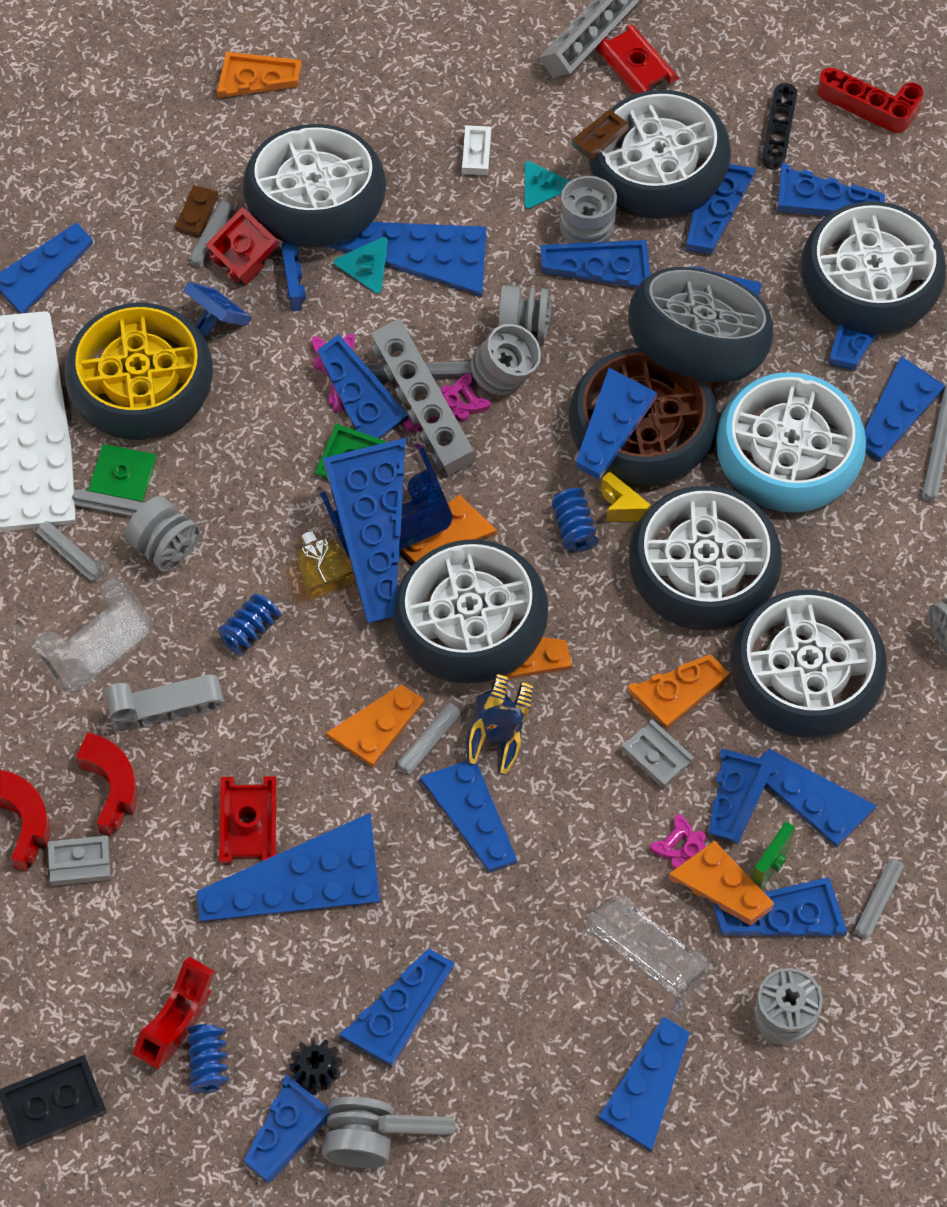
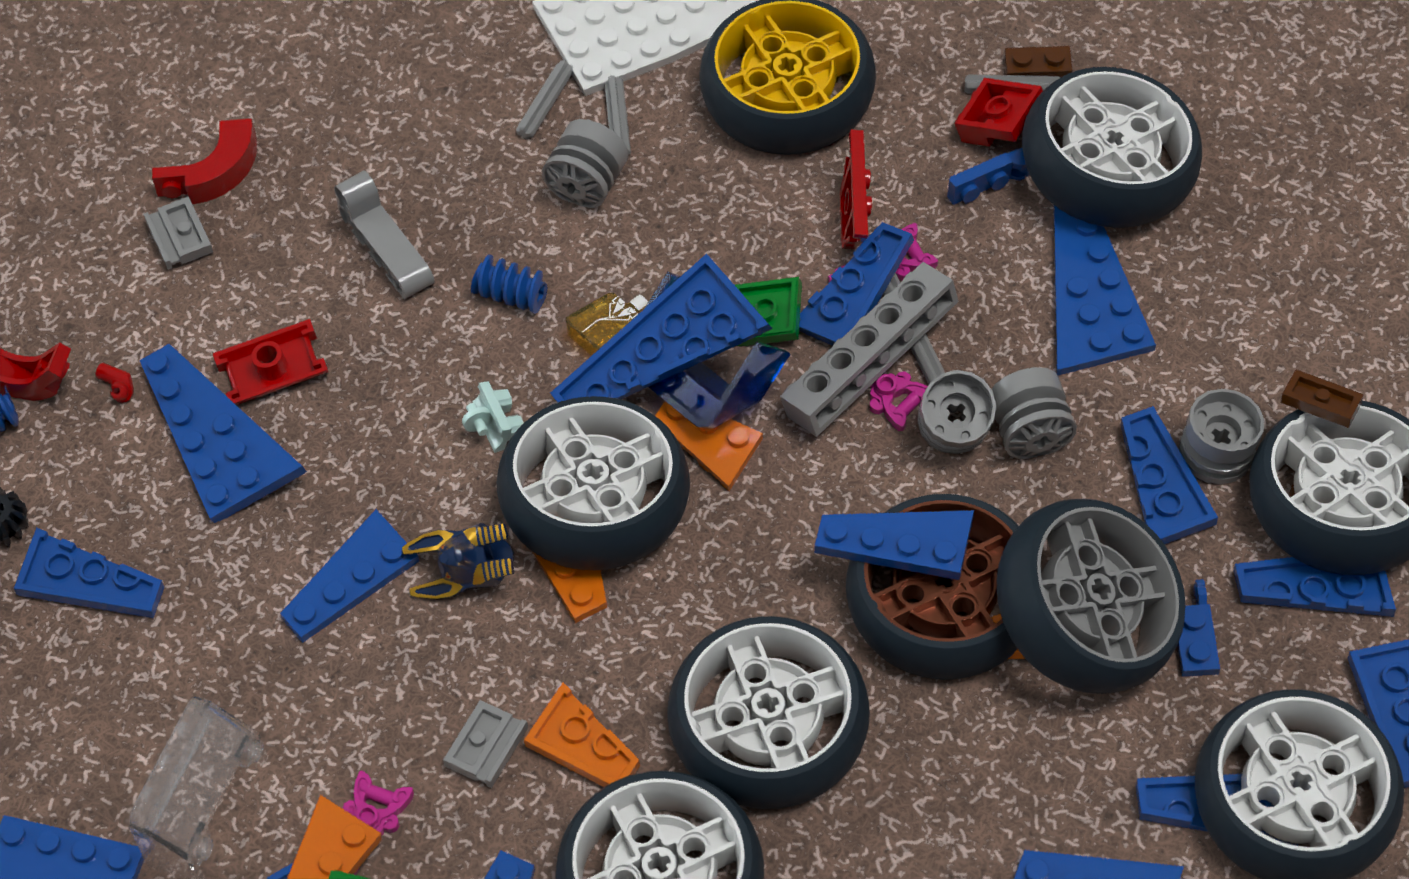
camera: 75 degrees right, 5 degrees down
(97, 646) = (442, 162): clear windscreen -> none
(110, 762) = (280, 234): red arch -> none
(123, 473) = (660, 113): green plate -> none
(212, 942) = (119, 379): none -> red arm
(216, 307) = (907, 115): blue tile -> none
(256, 73) = (1258, 51): orange wing -> none
(284, 362) = (854, 203): none -> red wing
(366, 264) = (1042, 243): teal piece -> none
(369, 671) = (488, 416): none -> light aqua hips
(378, 725) = (431, 450): orange wing -> none
(428, 738) = (430, 504): light grey axle -> none
(476, 150) = (1264, 300): white plate -> none
(541, 185) = (1257, 382): teal piece -> none
(573, 520) = (769, 556): blue piece -> none
(627, 505) = (820, 607): yellow slope -> none
(739, 790) = (470, 846): blue wing -> none
(790, 397) = (1047, 756): white wheel -> none

